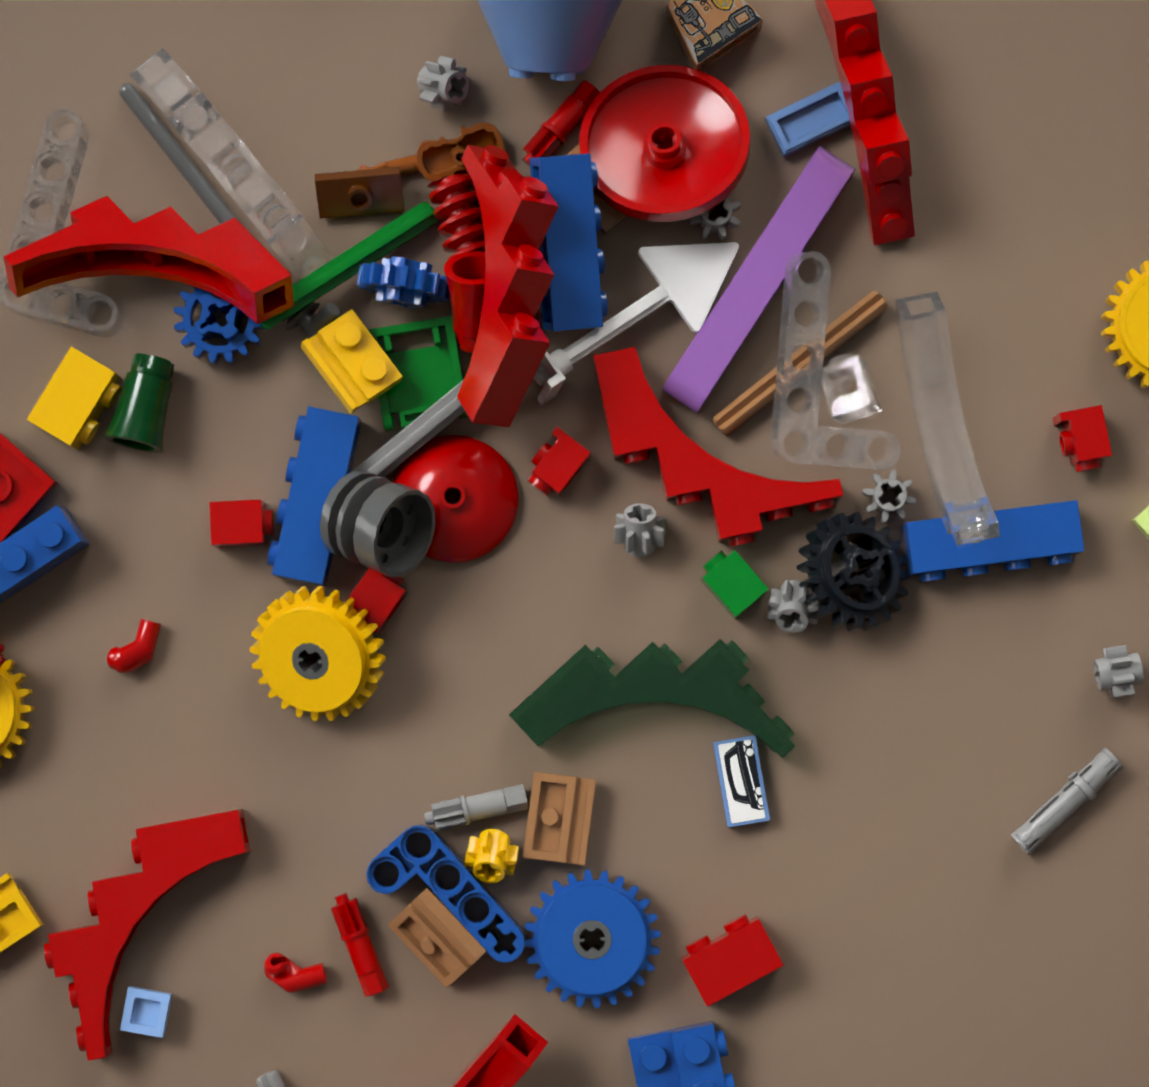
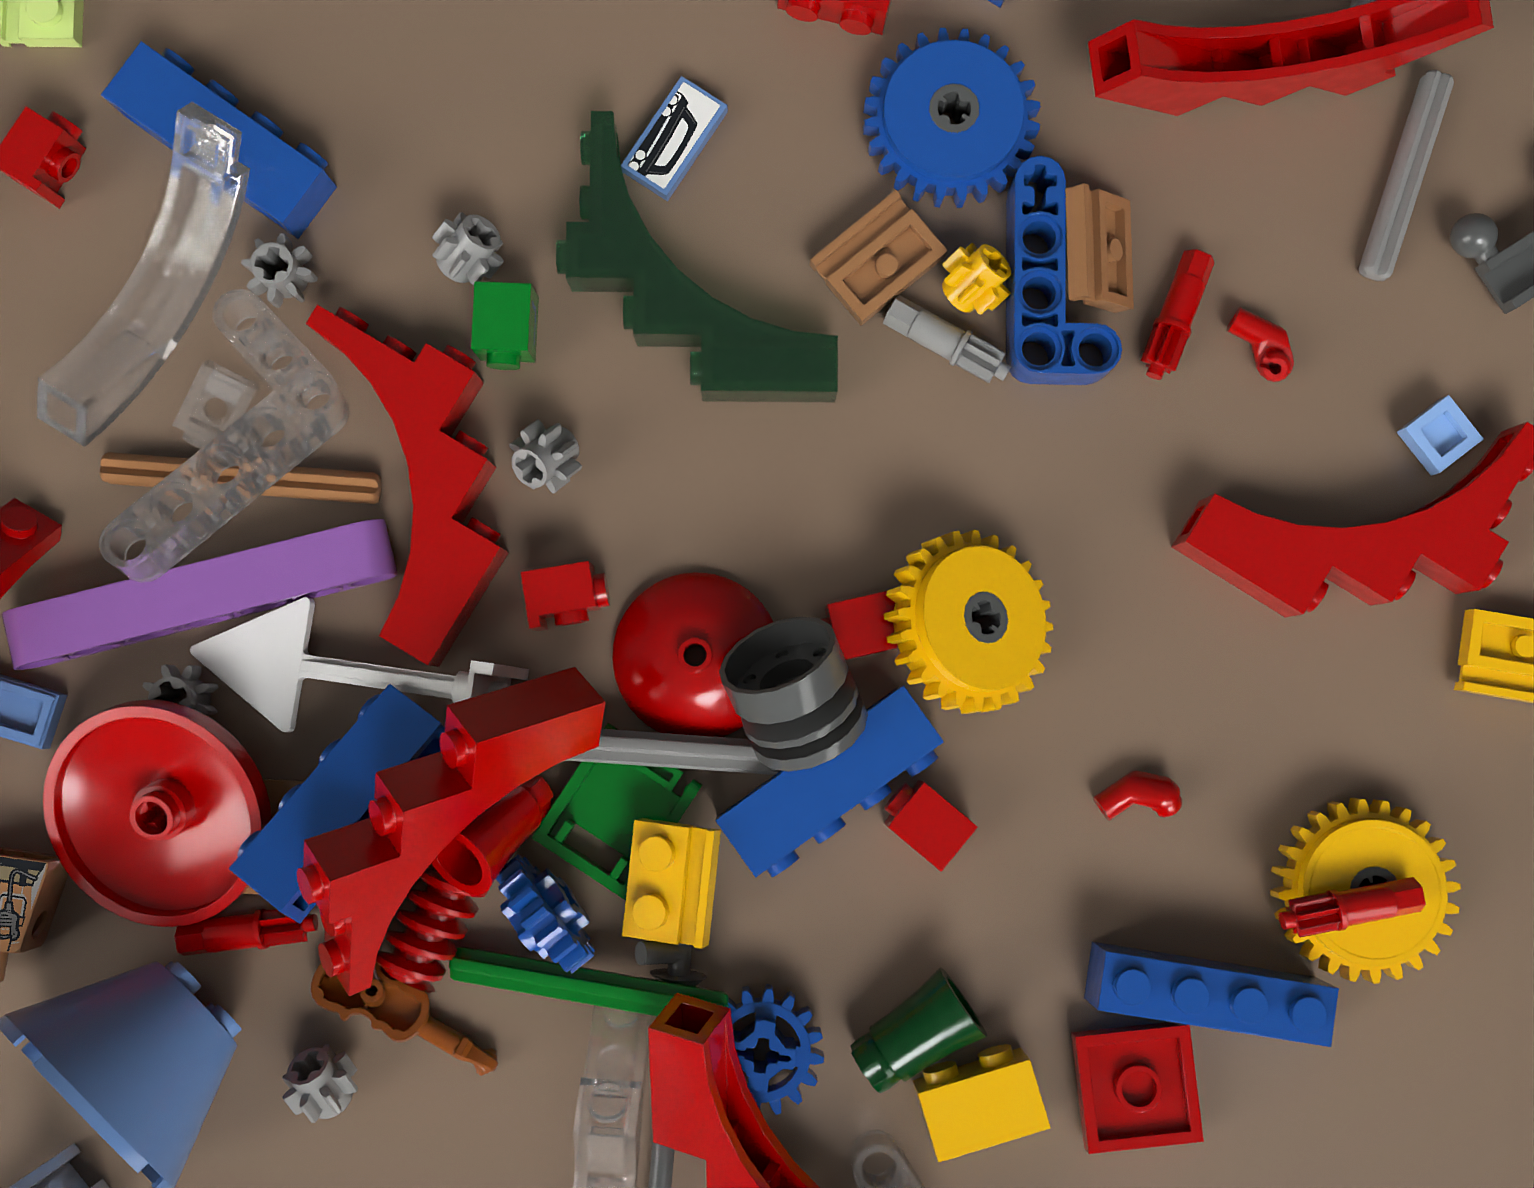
camera: 145 degrees left, 0 degrees up
(359, 192) = (507, 1049): reddish brown plate -> none
(834, 559) = (379, 225): black gear -> none

